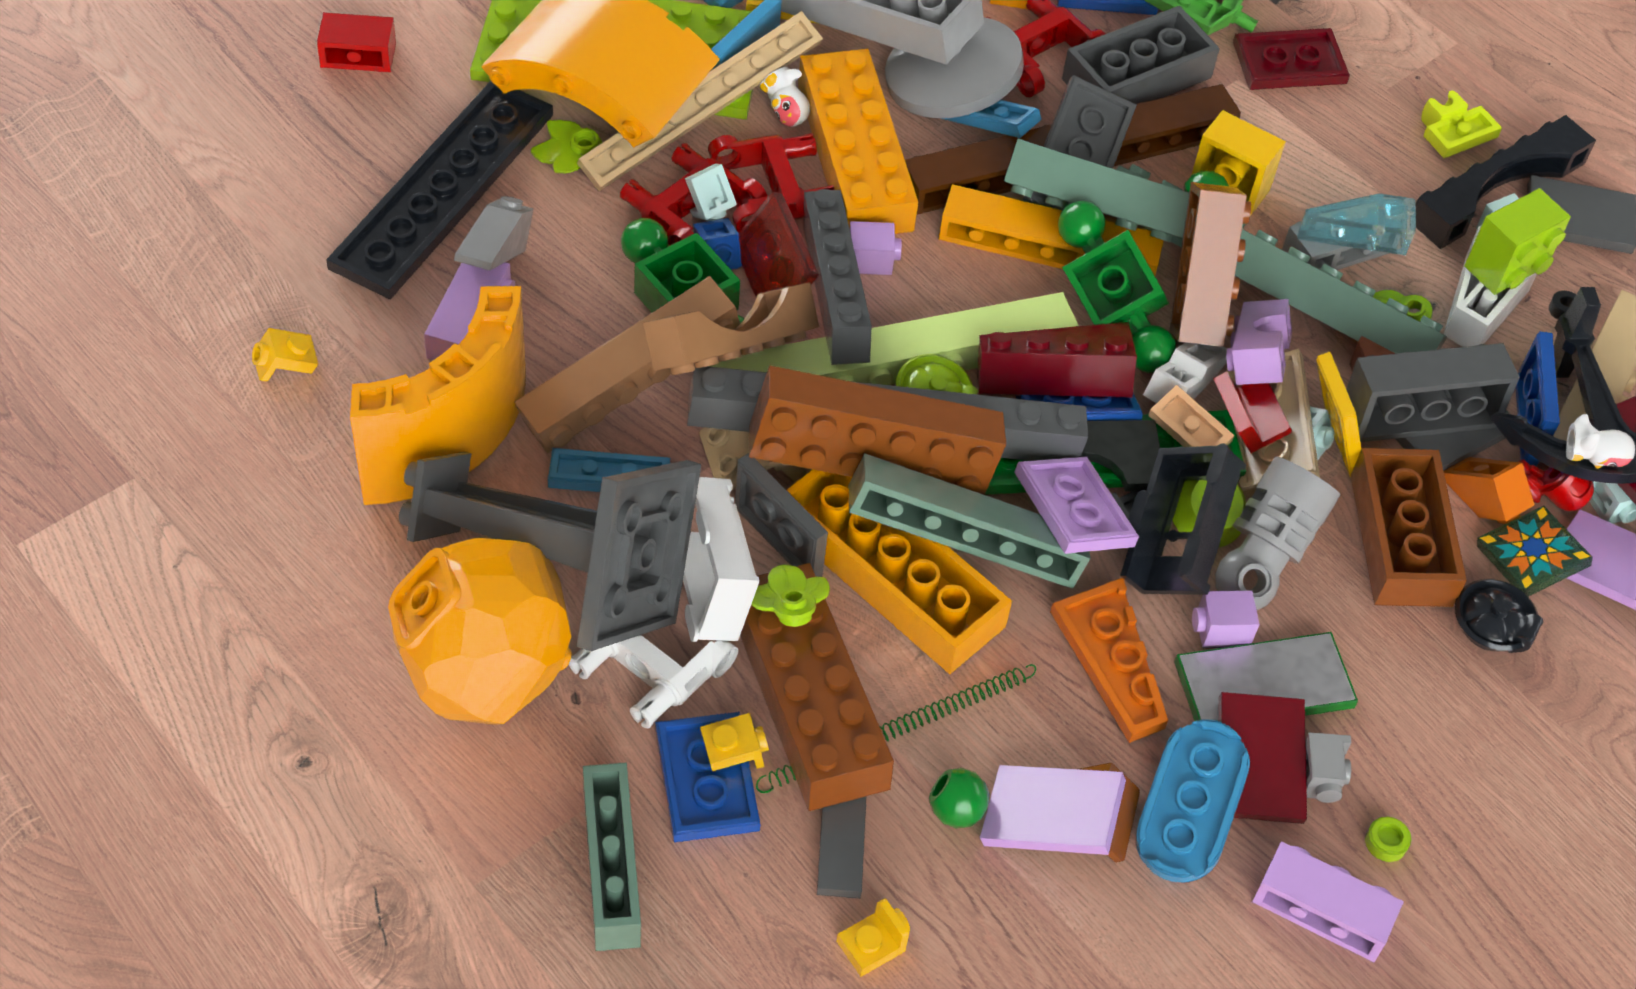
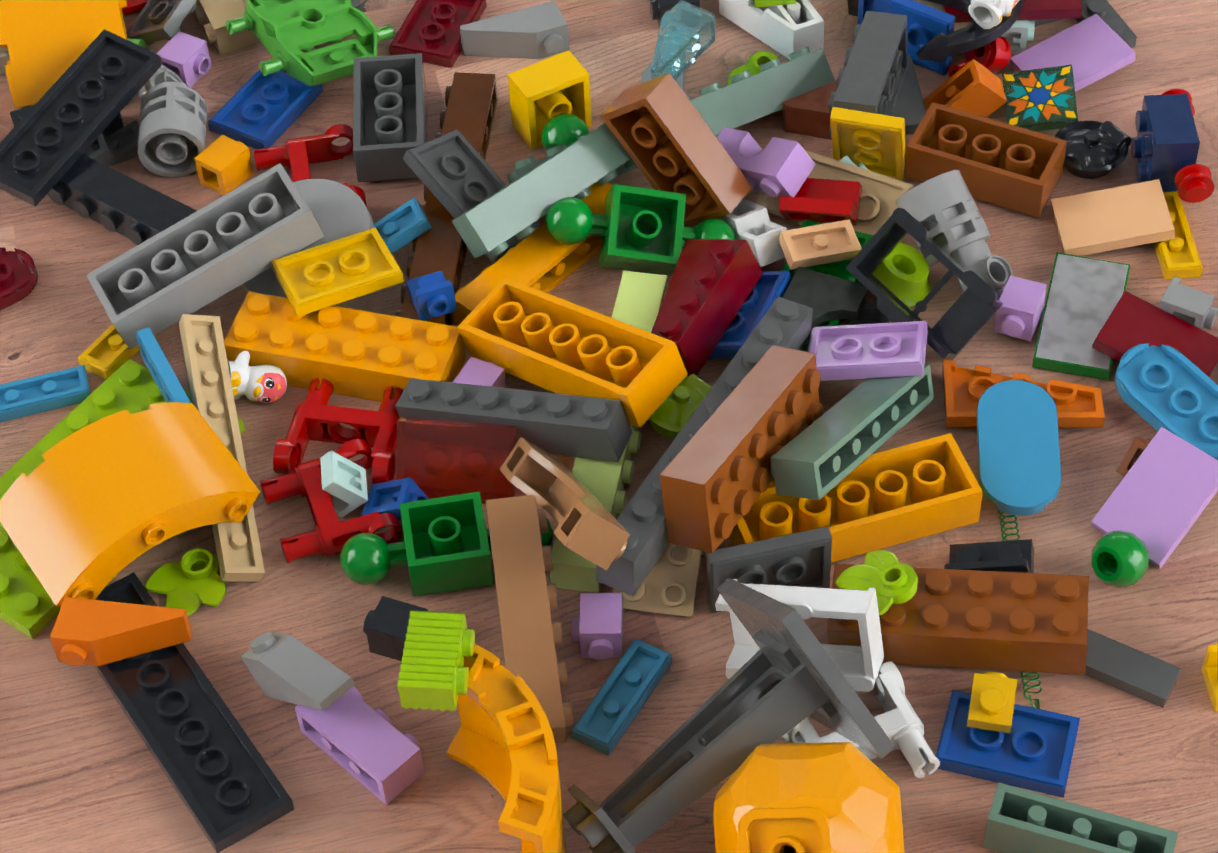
camera: 55 degrees left, 5 degrees down
(475, 277) = (434, 660): none -> lime brick
(477, 110) = (112, 631): none -> orange slope
(588, 293) = (388, 627): none -> black brick
(664, 427) = (599, 626): none -> lavender brick
(894, 696) = (993, 556): none -> black bracket
(919, 92) = (337, 271): none -> yellow tile
(926, 284) = (572, 349): none -> light orange brick
(939, 166) = (431, 295): none -> blue bracket
(1045, 670) = (1018, 447): none -> dark azure tile
(1318, 117) = (518, 34): none -> light grey slope
(1410, 666) = (1112, 218): none -> light nougat tile
(1431, 729) = (1179, 255): none -> yellow tile
(1539, 677) = (1170, 145): none -> dark blue brick

